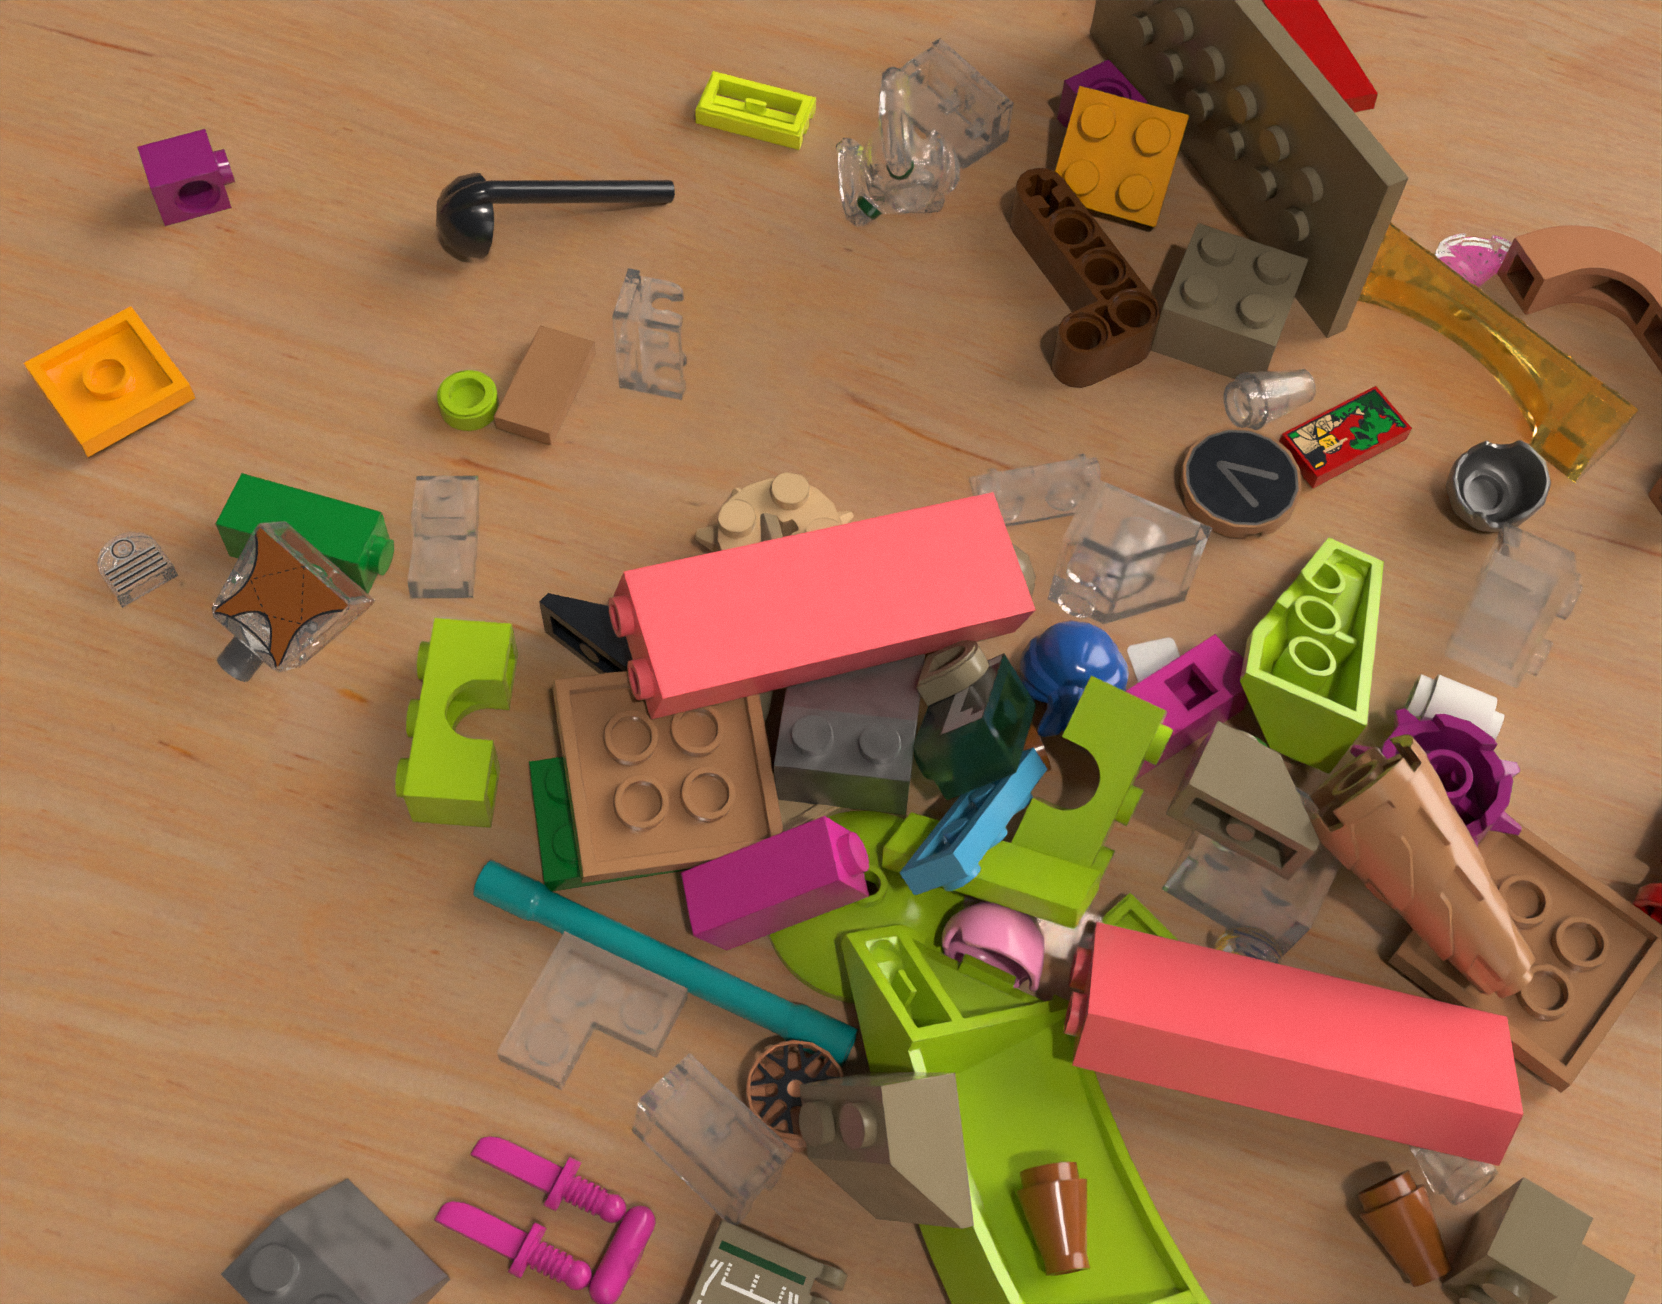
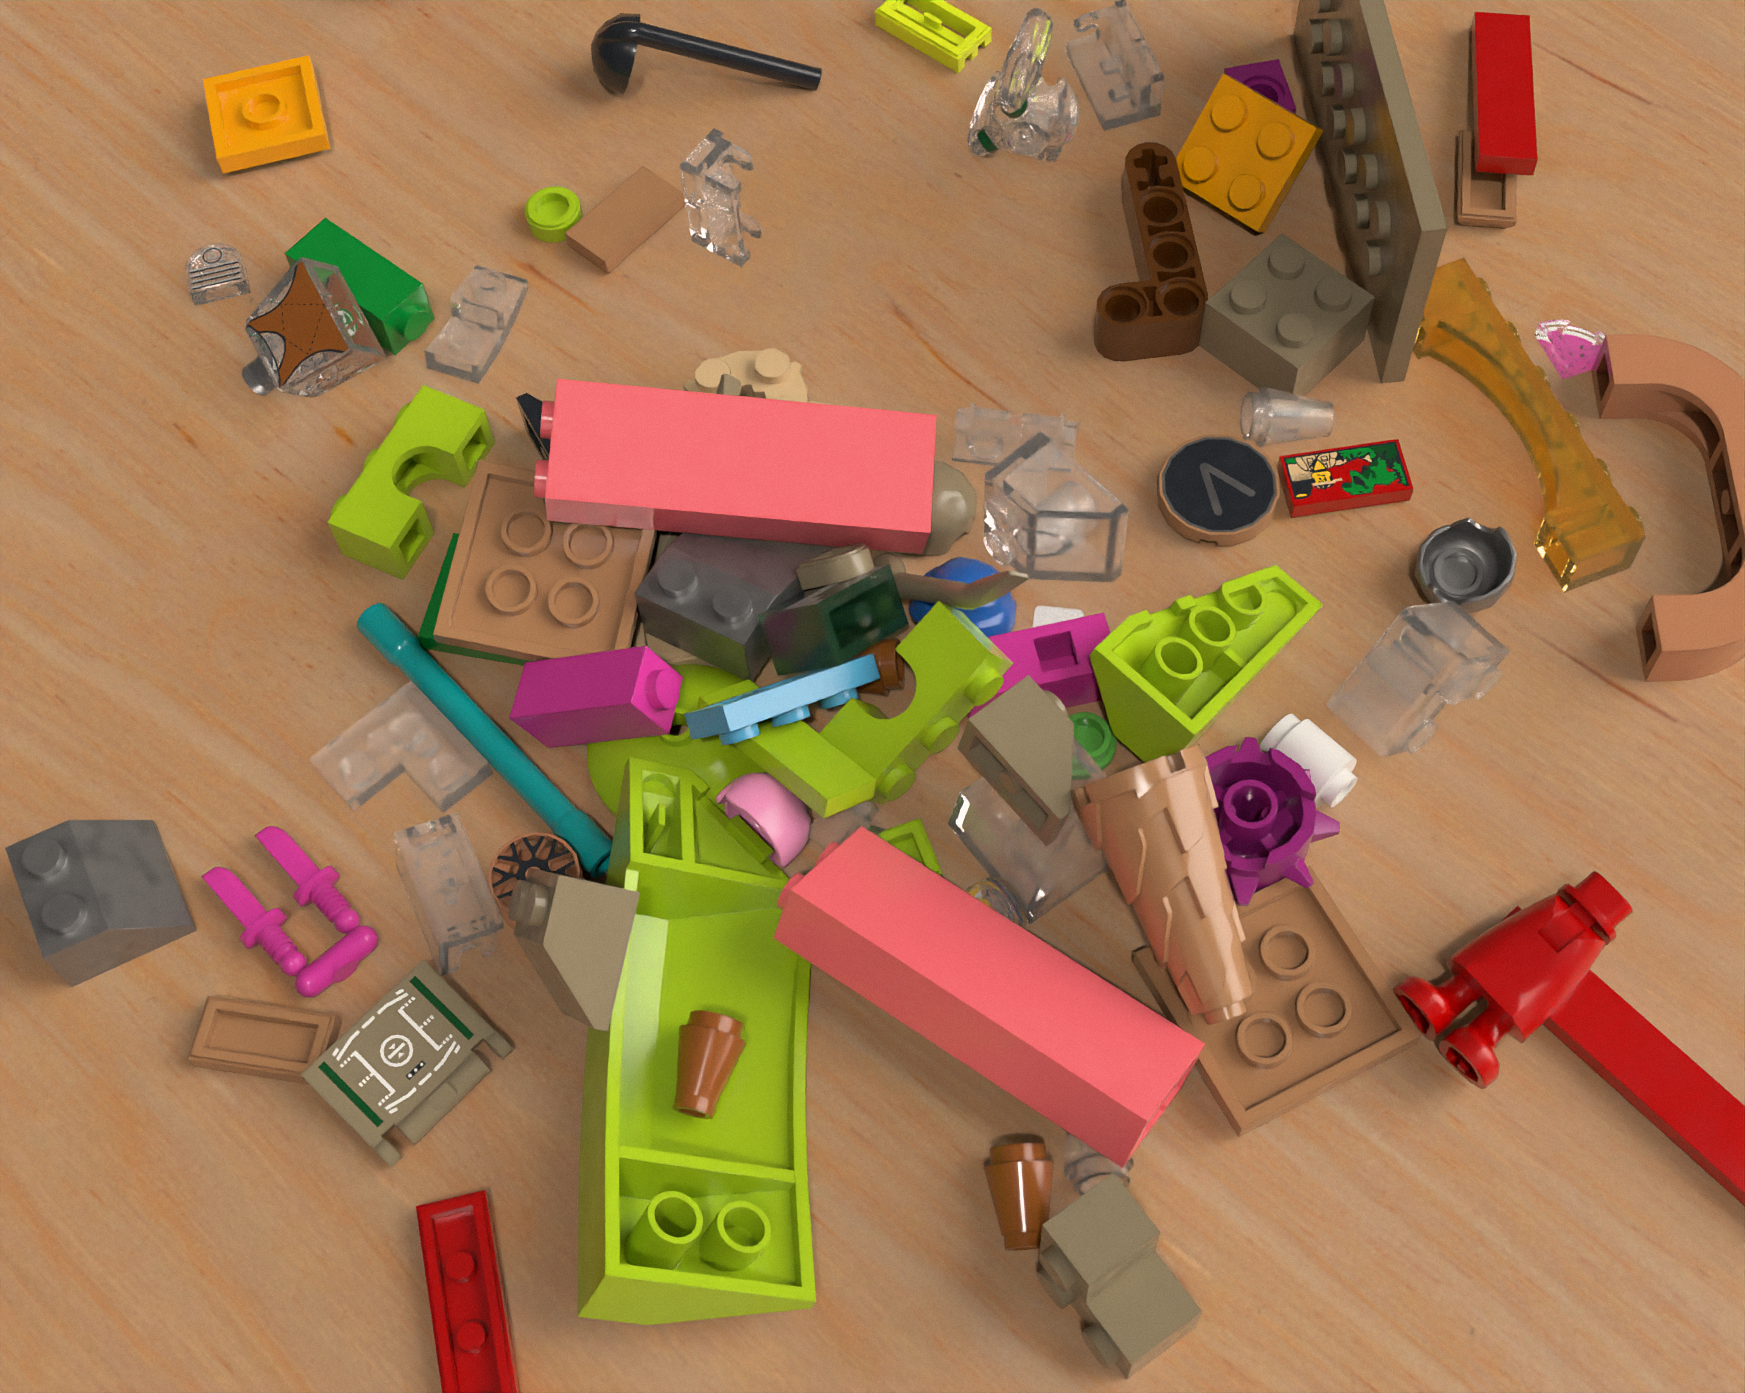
camera: 30 degrees right, 0 degrees up
(1087, 662) = (950, 592): none -> dark tan piece

